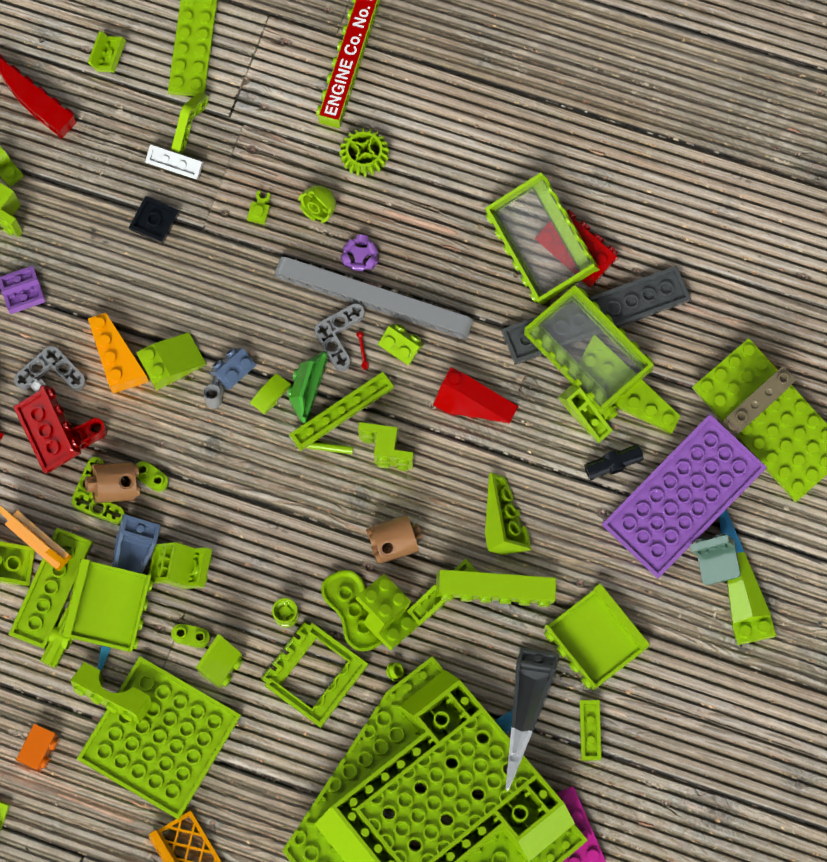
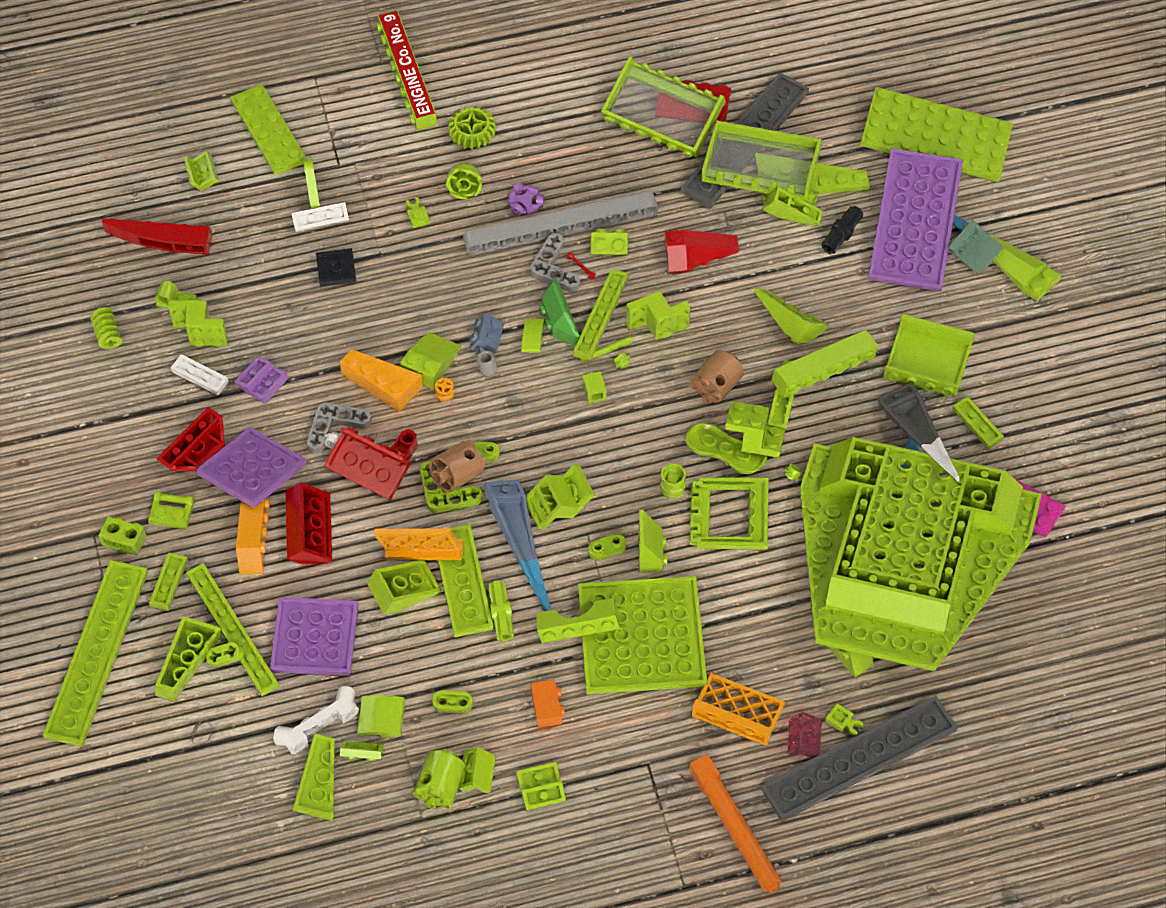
camera: 35 degrees left, 15 degrees down
(107, 606) = (523, 560): lime panel -> none
(161, 393) = (444, 384): none -> light orange wheel
(286, 477) = (594, 387): none -> lime brick
(328, 467) = (622, 360): none -> lime plate
(758, 401) = (922, 115): dark tan fence -> none

